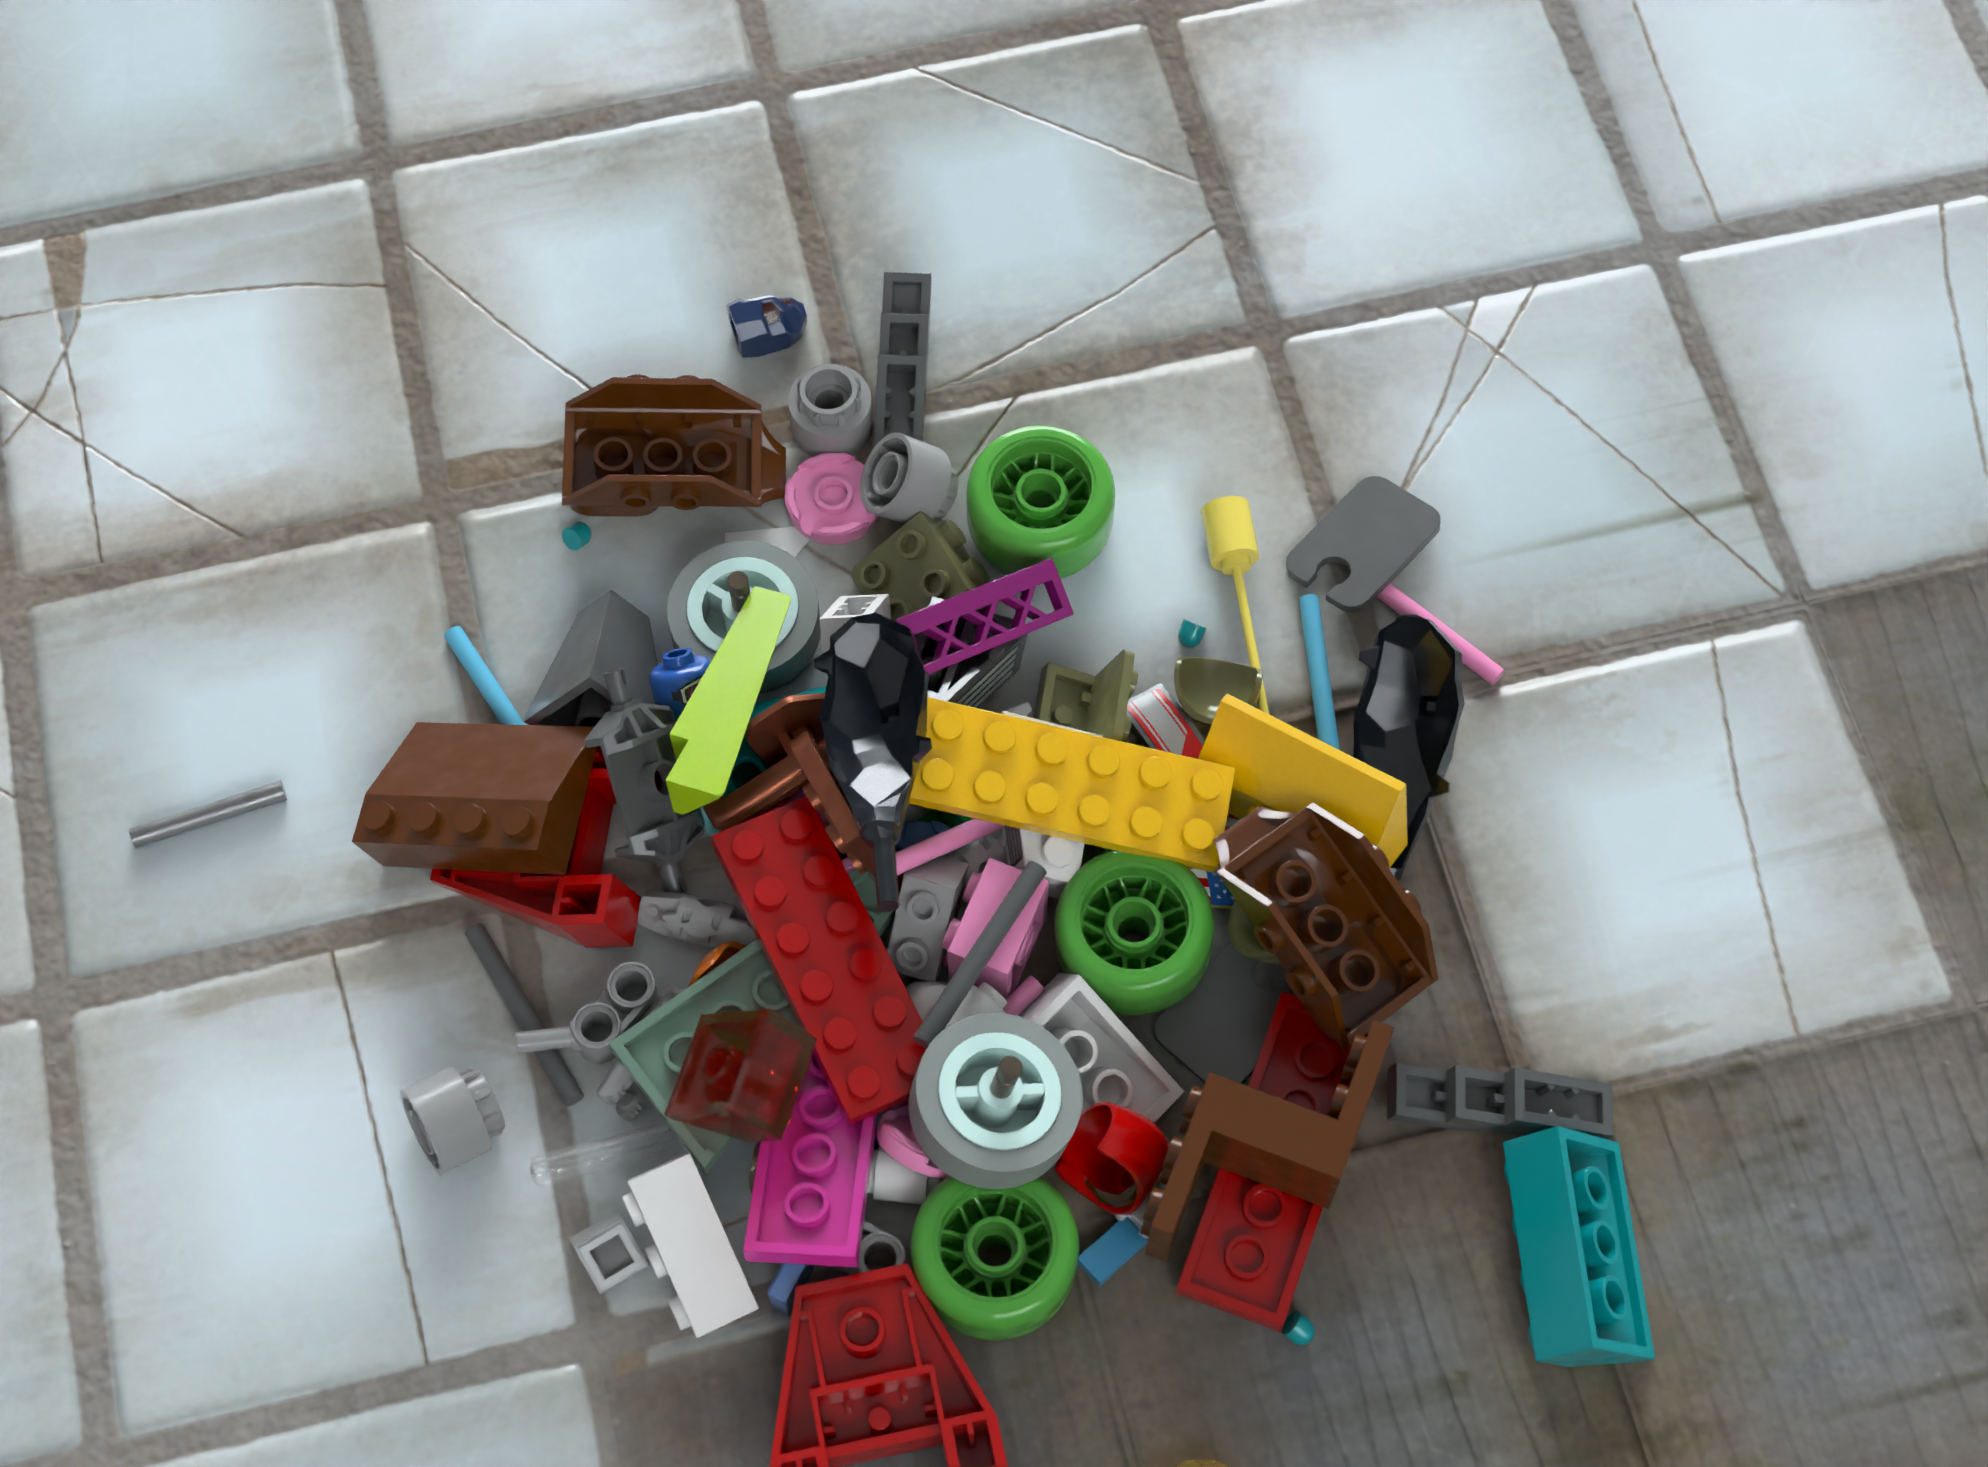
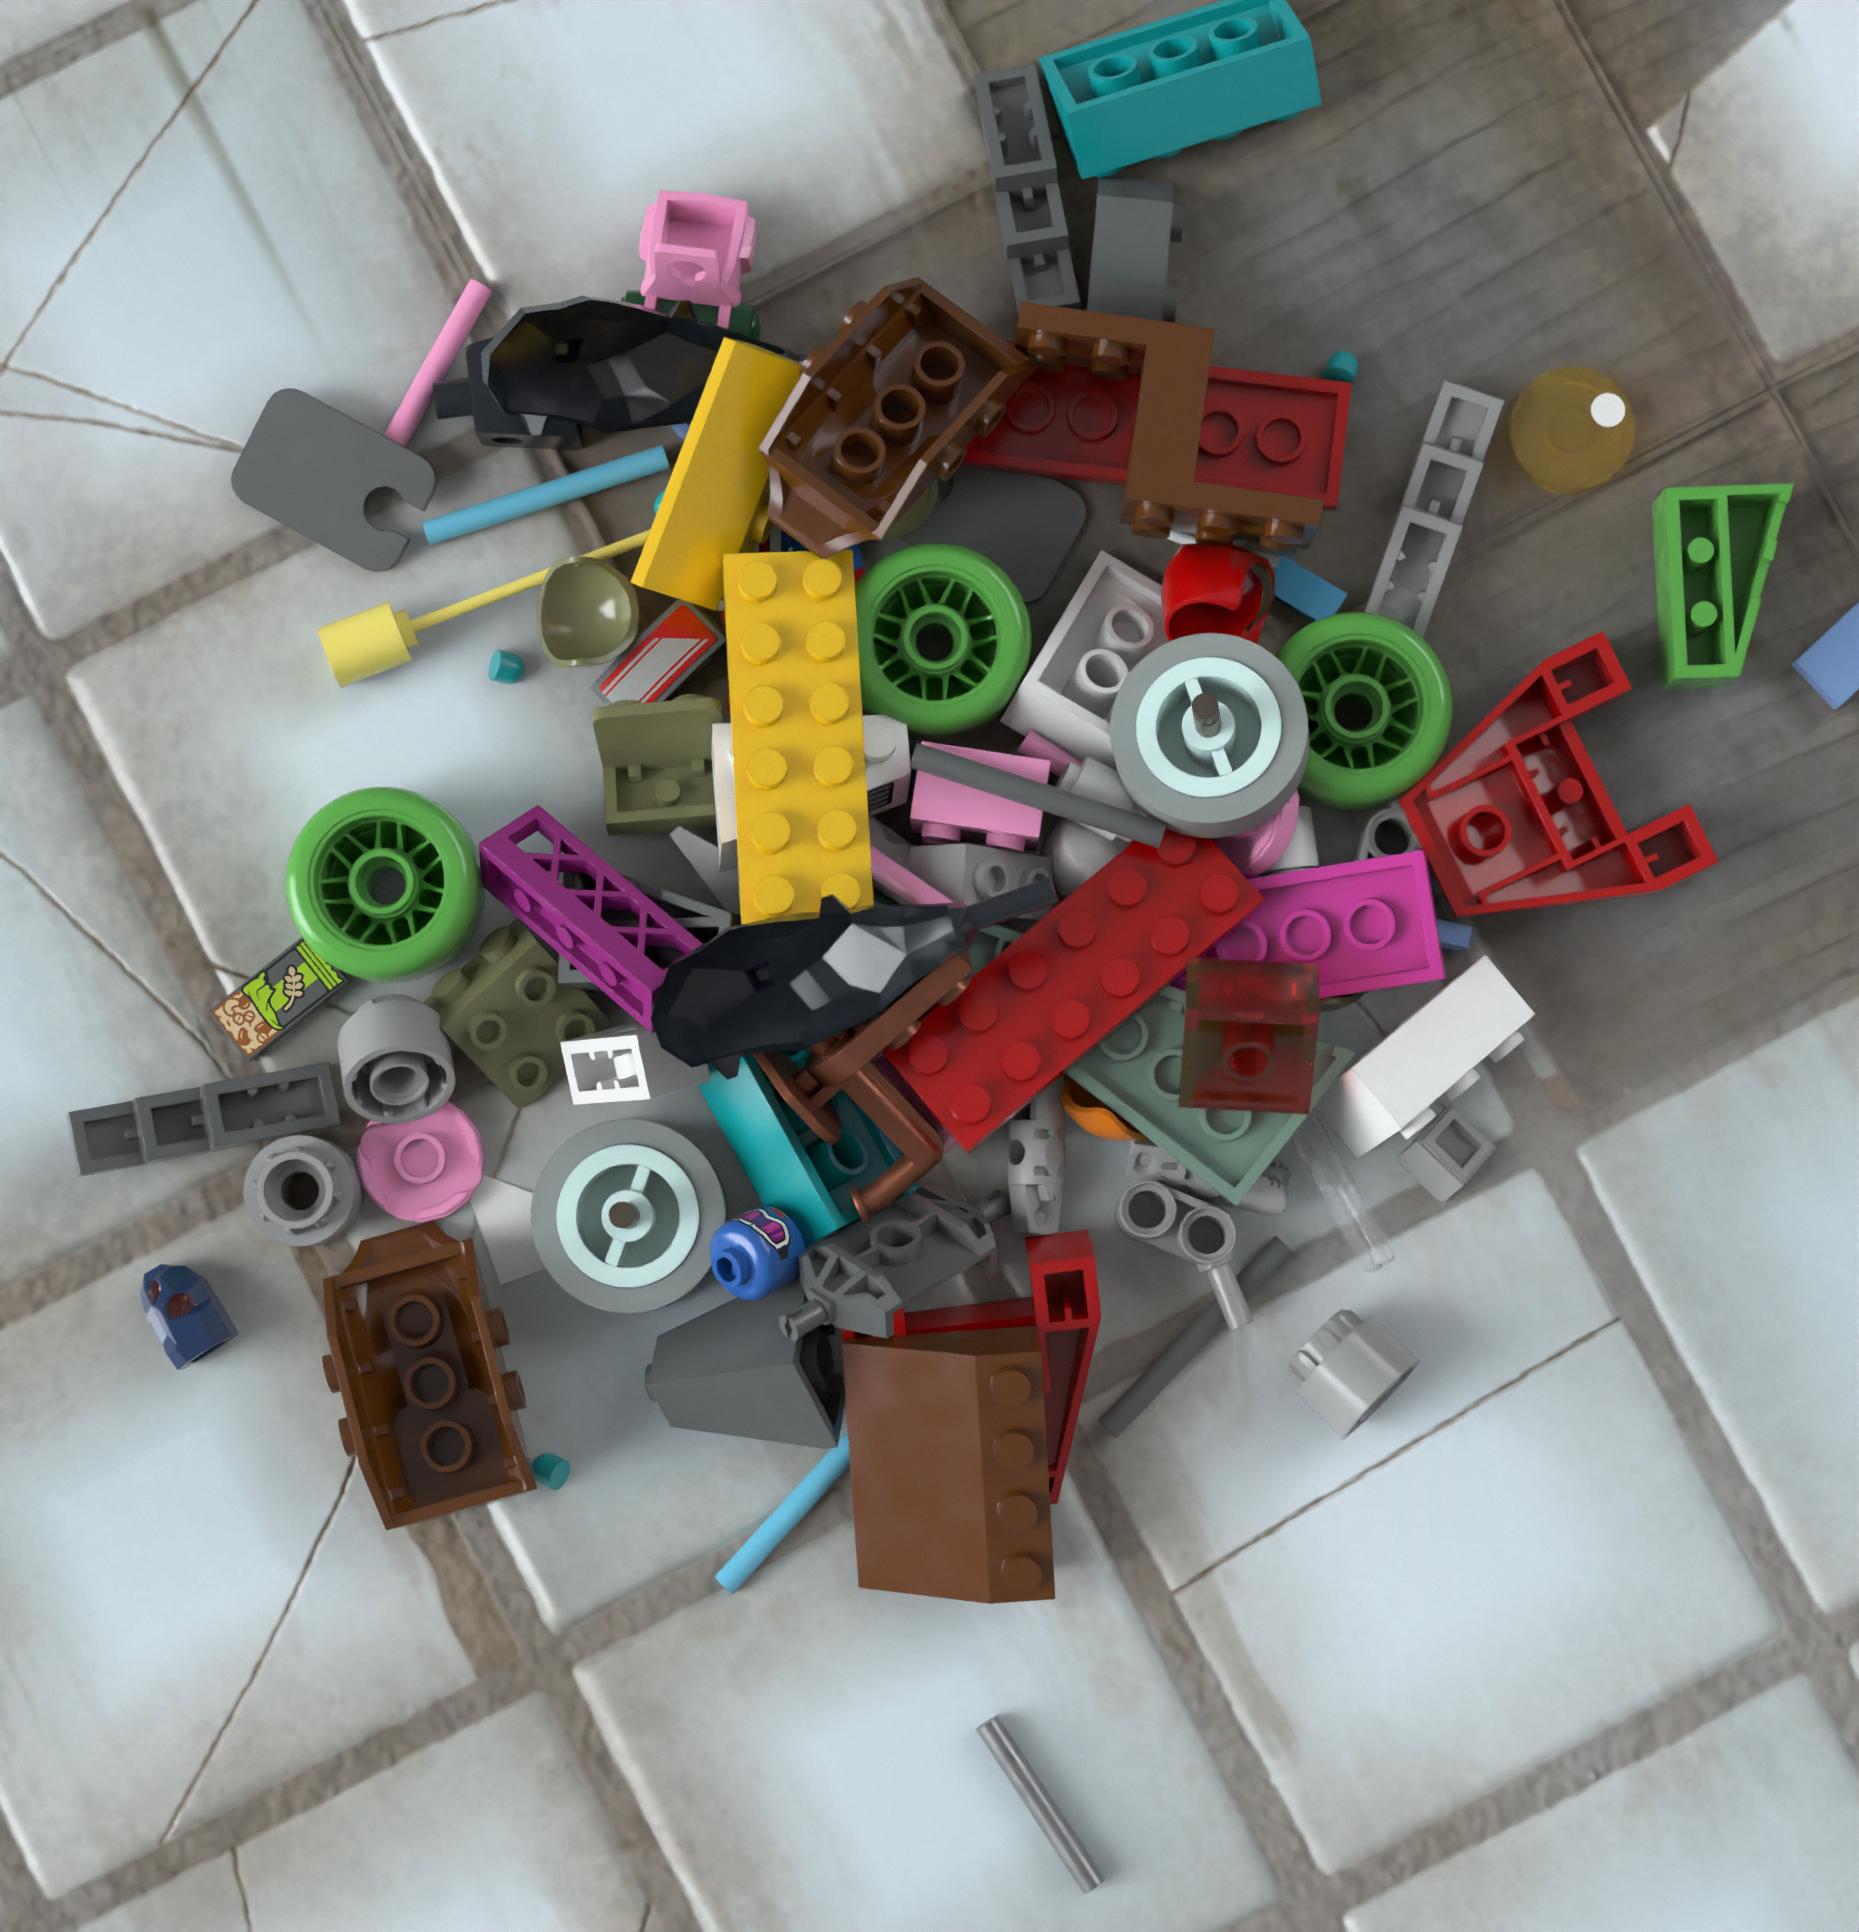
camera: 100 degrees left, 20 degrees up
(721, 706) = (789, 1181): lime wedge -> none
(972, 418) = (277, 999): none -> tile
(1157, 1374) = (1434, 505): none -> light grey slope
(1426, 1167) = (1132, 248): none -> dark grey brick
(1482, 824) = (698, 253): none -> bright pink piece

